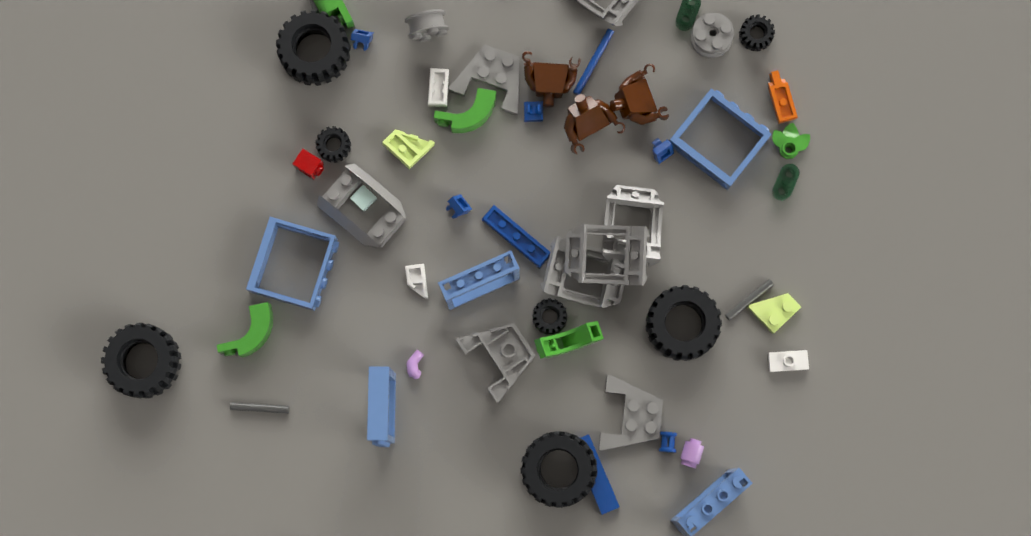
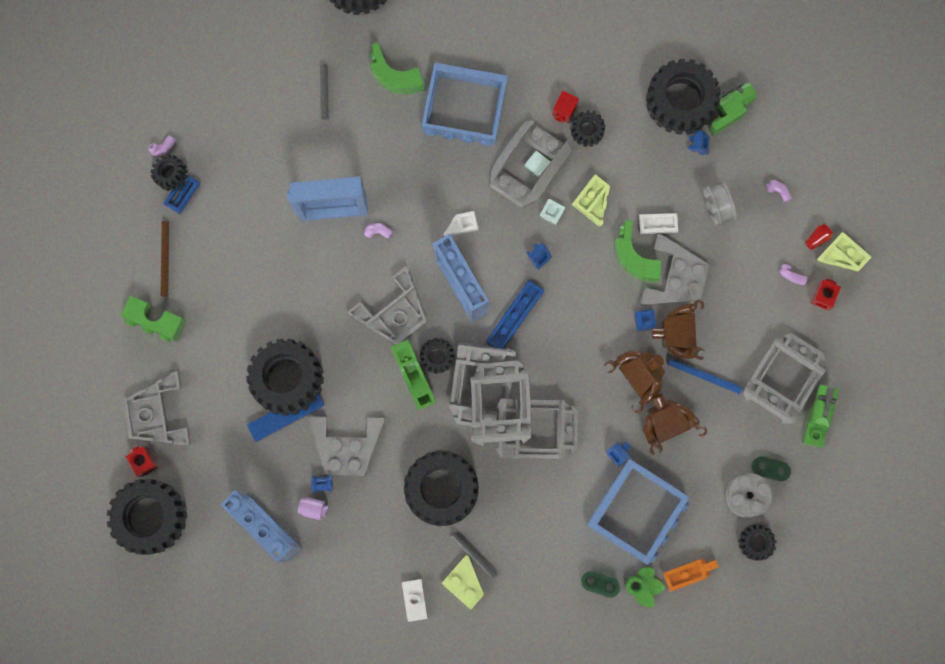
camera: 85 degrees right, 0 degrees up
(414, 189) = (552, 211): none -> light aqua tile

